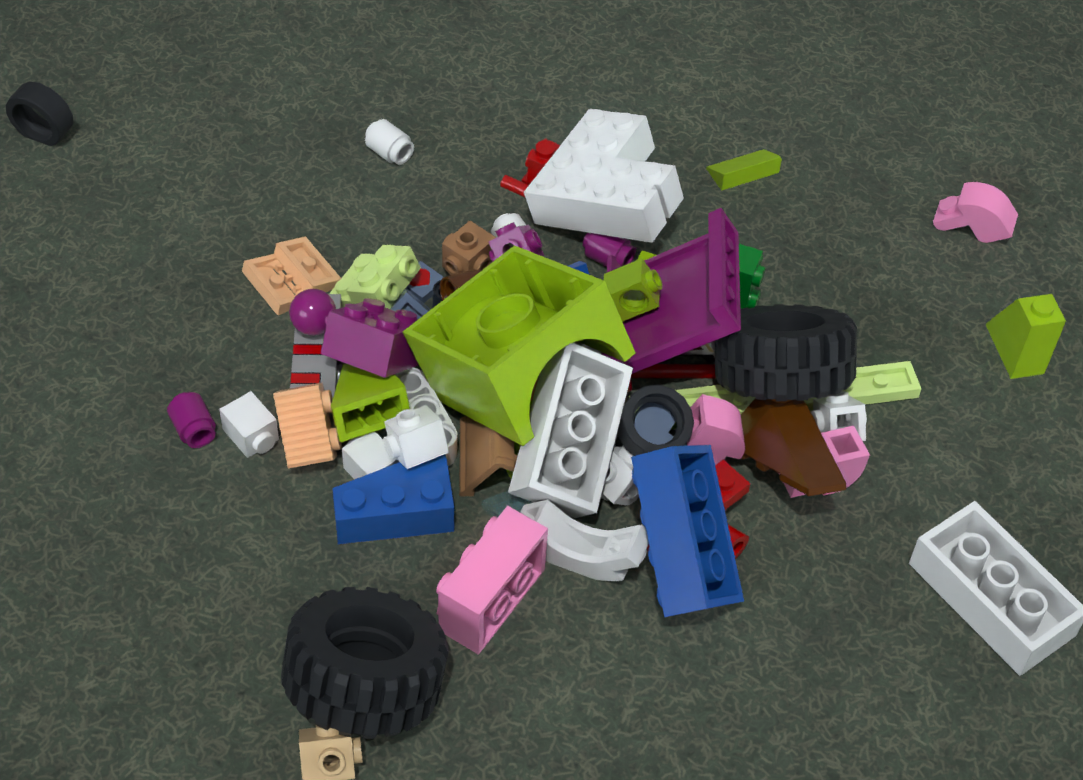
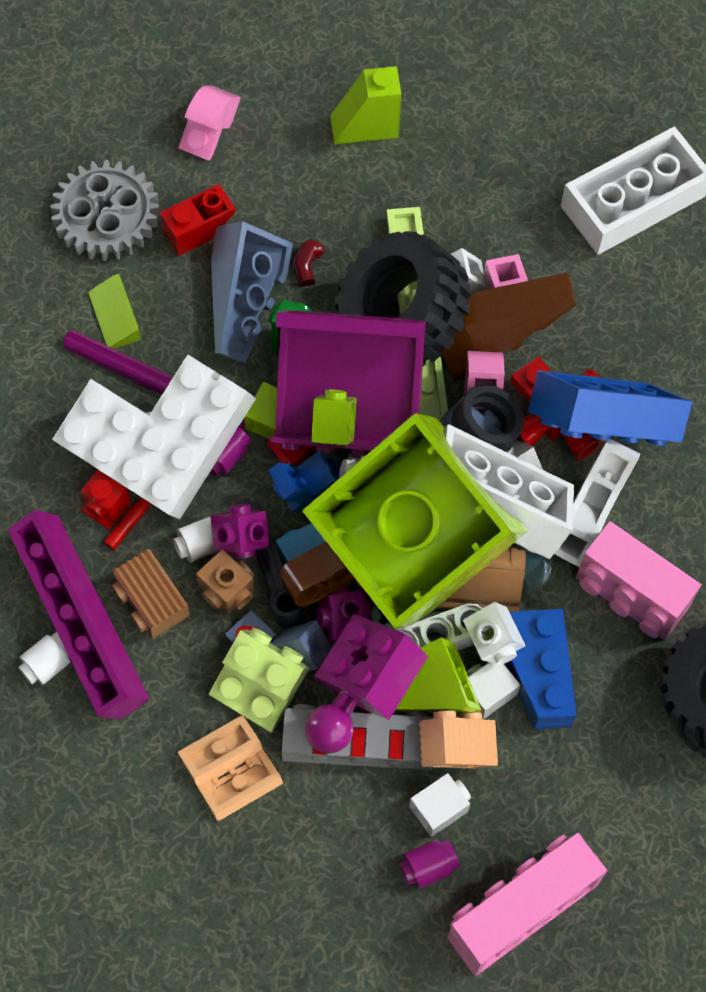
camera: 85 degrees left, 15 degrees up
(141, 483) = (526, 903): none -> bright pink brick
(427, 153) = (78, 615): none -> magenta brick
(455, 204) = (150, 594): none -> medium nougat brick
(688, 181) = (119, 362): none -> magenta axle
(806, 254) = (243, 274): none -> sand blue wedge
(846, 303) = (307, 252): none -> dark red arm
(852, 150) = (80, 198): none -> light grey gear
(853, 206) = (196, 219): none -> red slope

